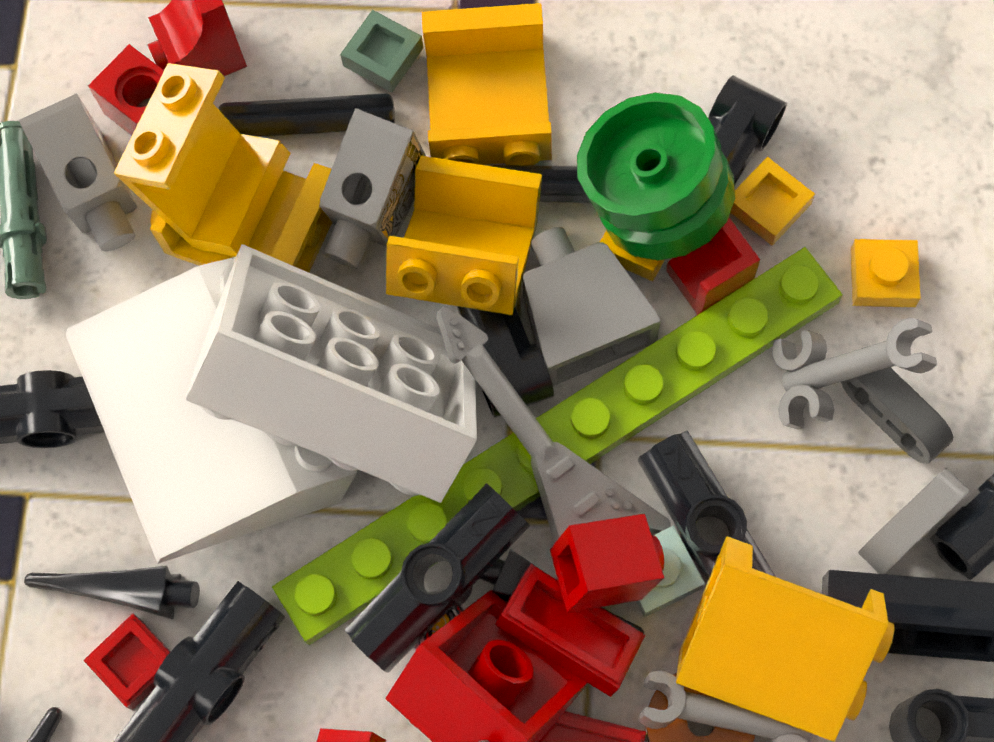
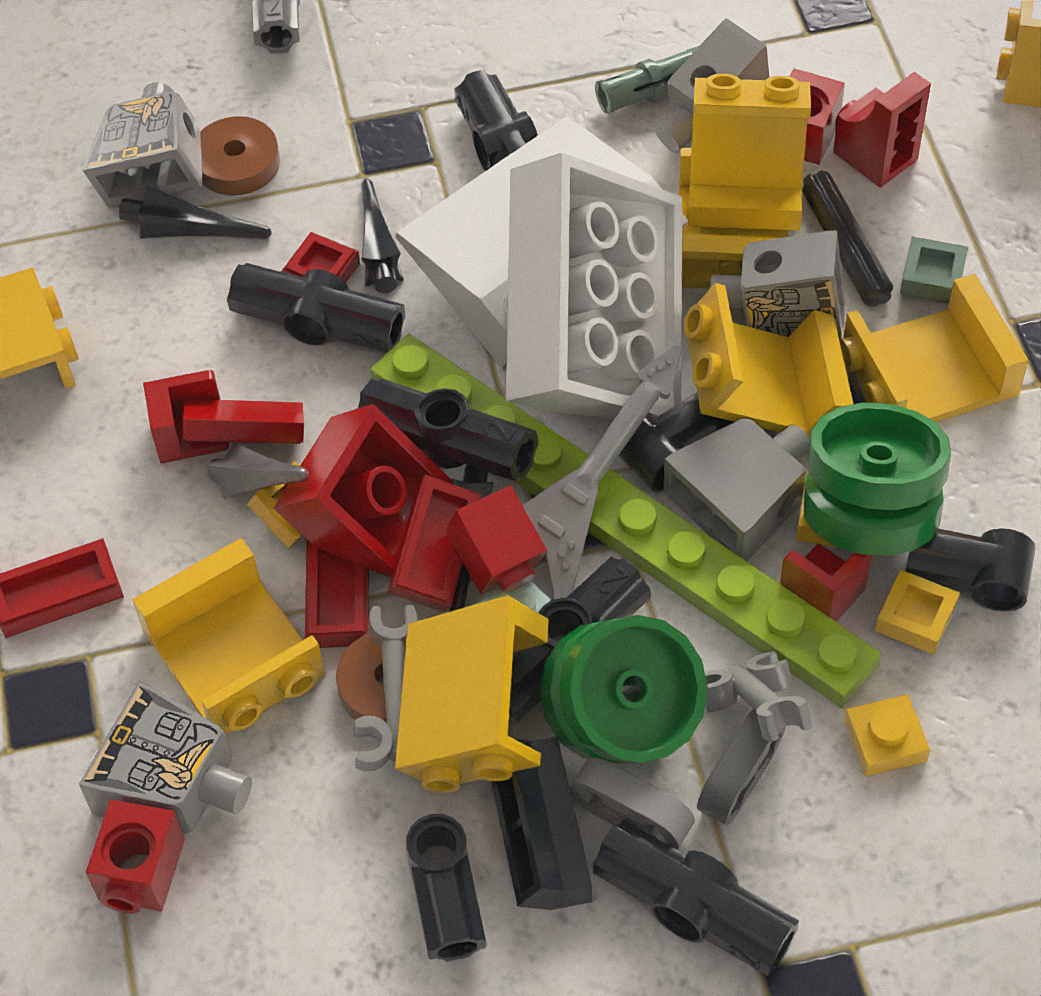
camera: 70 degrees right, 15 degrees down
(818, 489) = (624, 690): none -> green wheel

